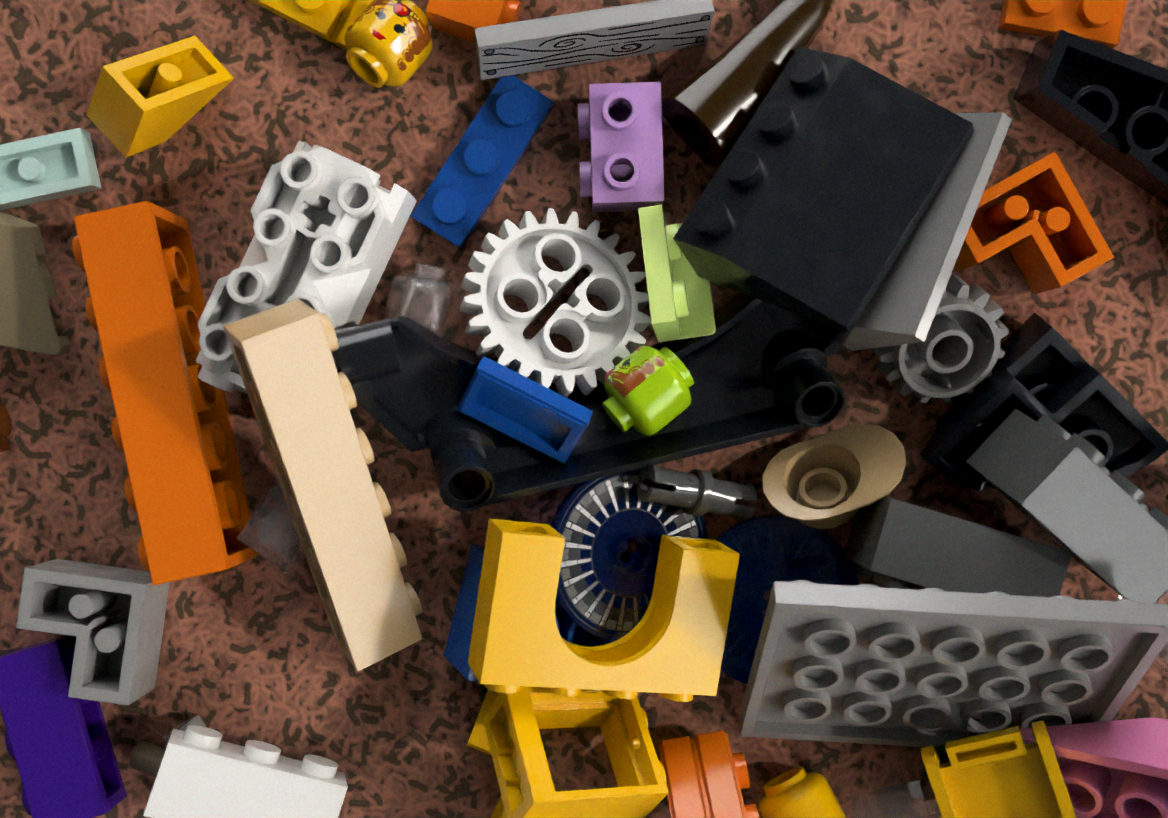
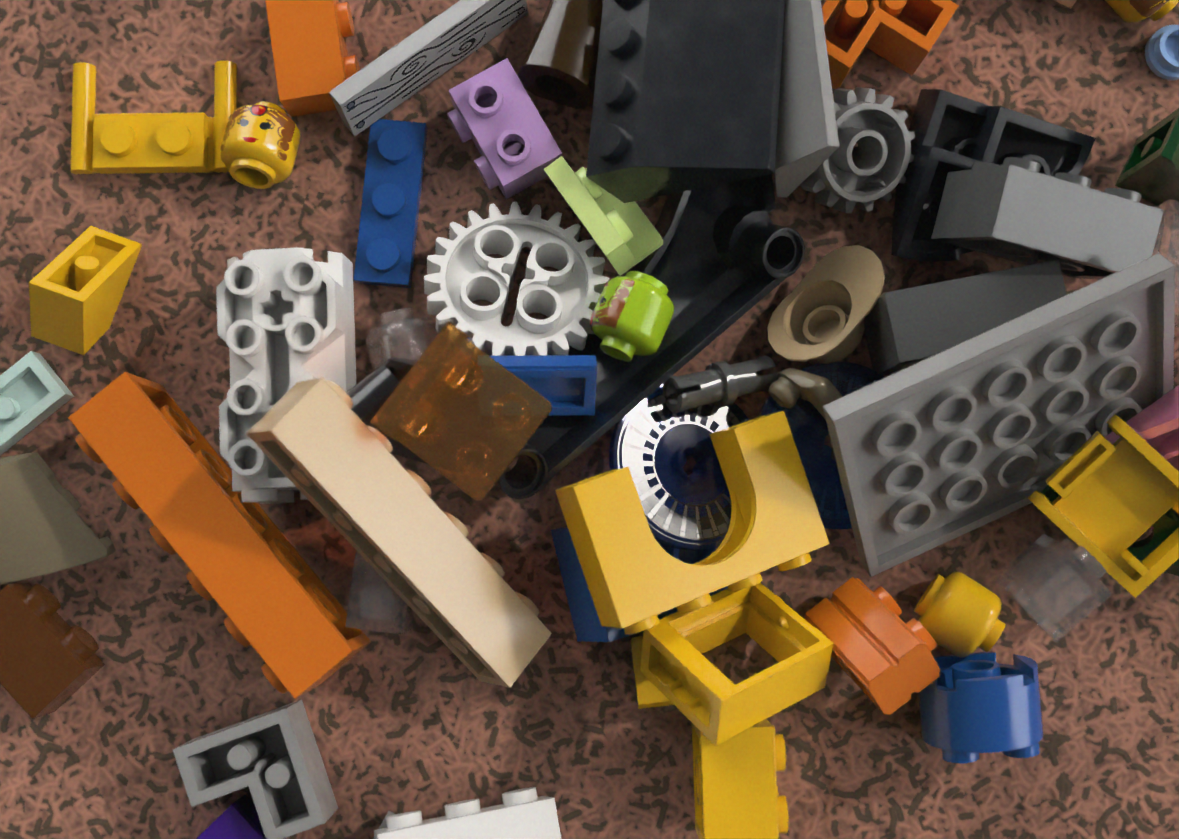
camera: 30 degrees left, 5 degrees down
(437, 408) = (462, 413): none -> clear orange bracket
(782, 546) = (804, 385): none -> dark tan arm

